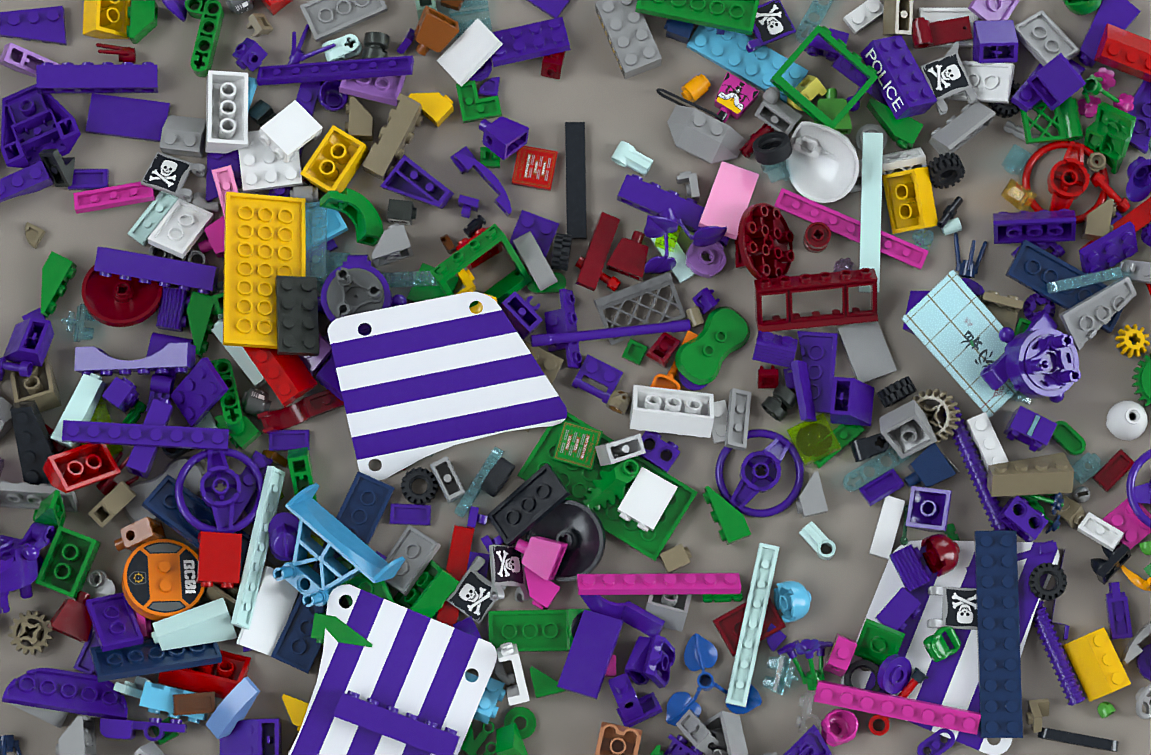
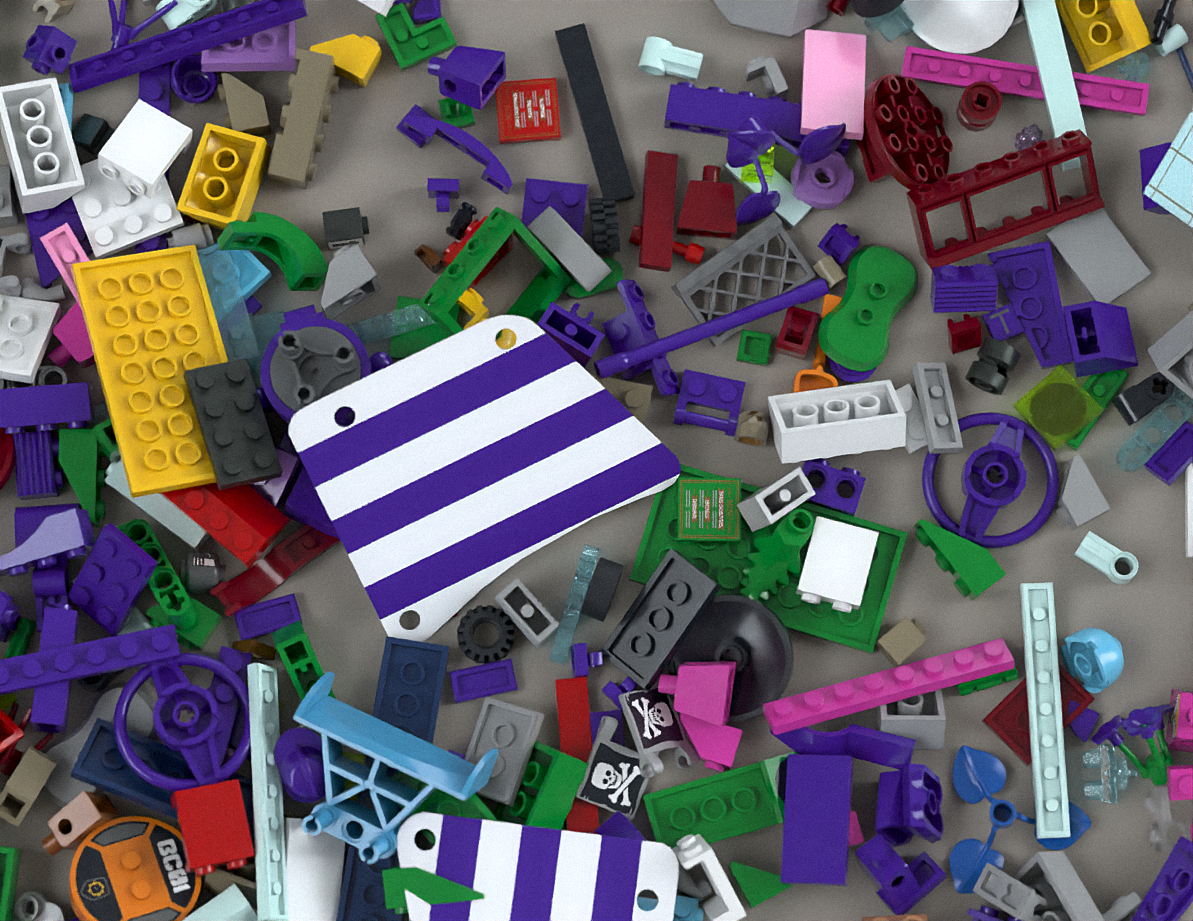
camera: 20 degrees left, 0 degrees up
(415, 183) = (358, 180): dark purple wedge -> none
(803, 391) = (1024, 339): dark purple tile -> none
(896, 391) = (1161, 305): black tyre -> none

